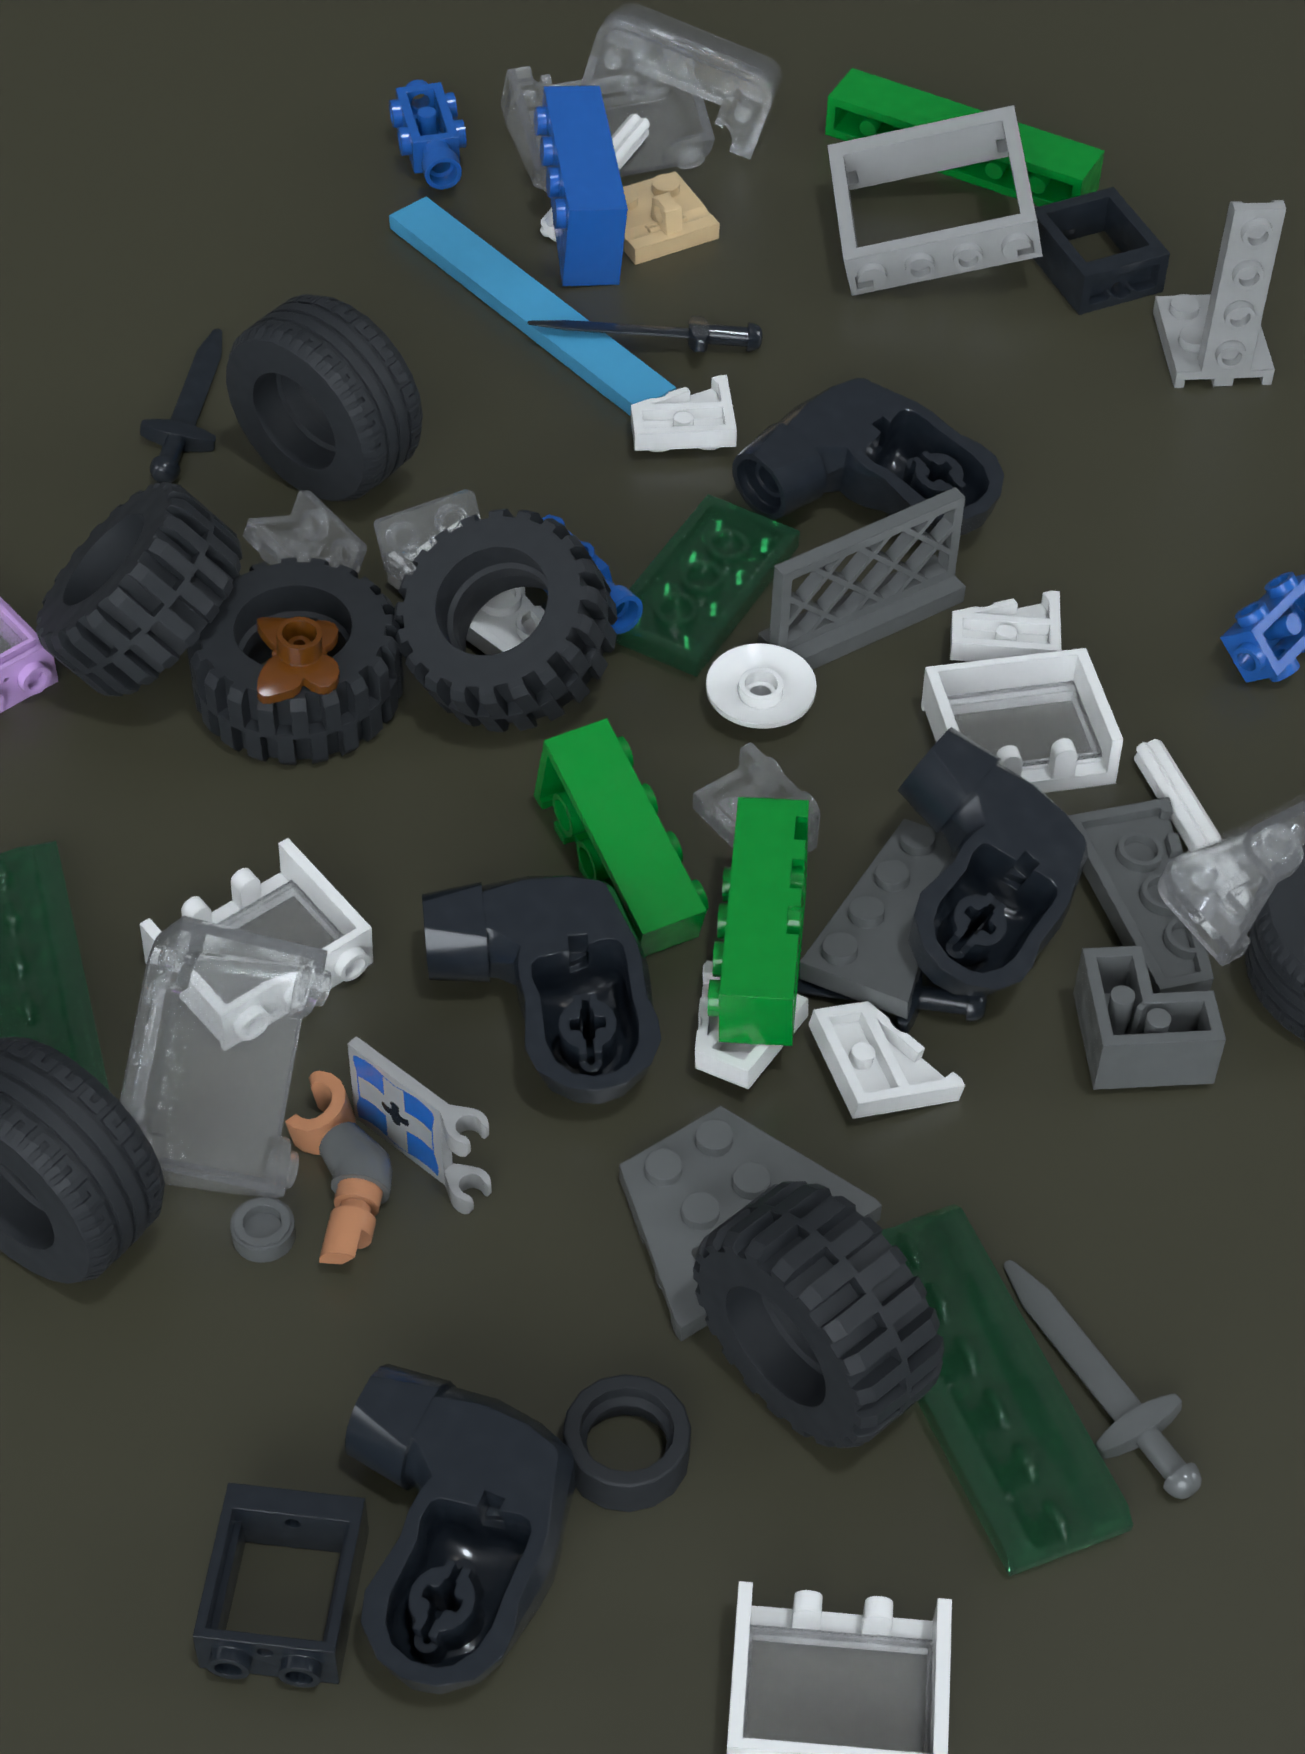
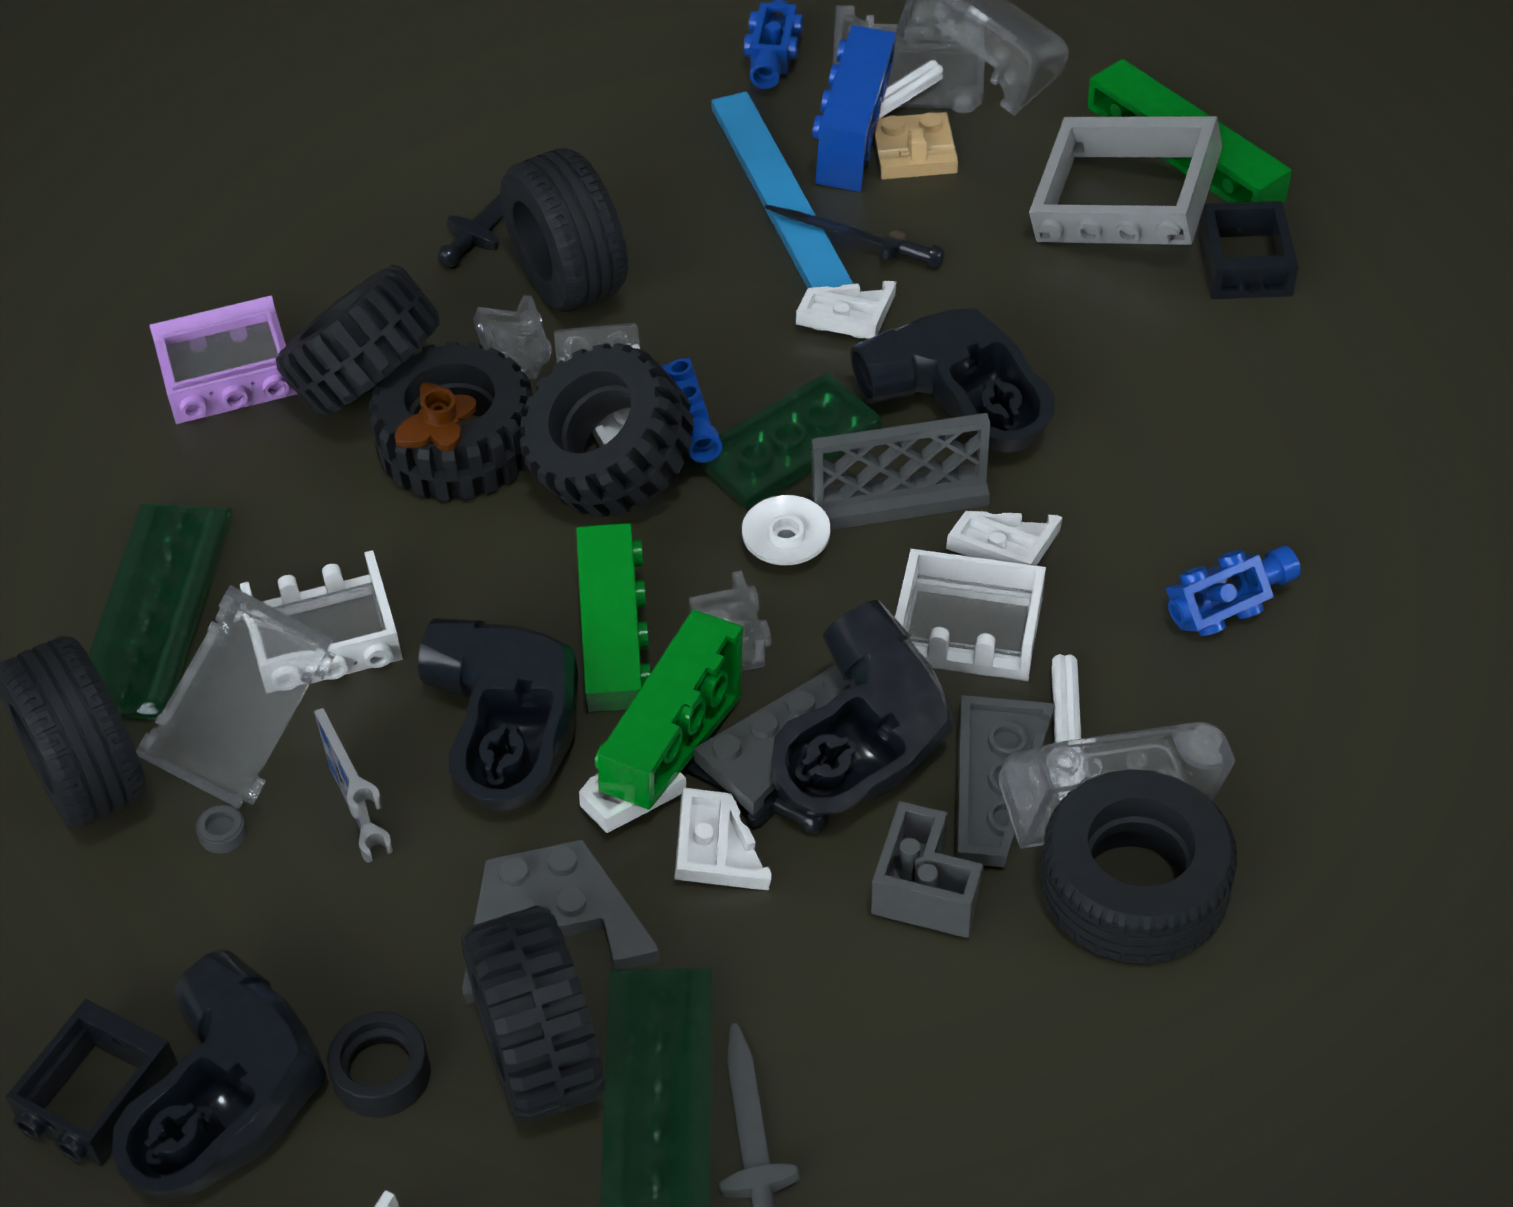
camera: 25 degrees right, 0 degrees up
(356, 1162) = (302, 803): nougat piece -> none
(1221, 331) = (1309, 334): light grey bracket -> none

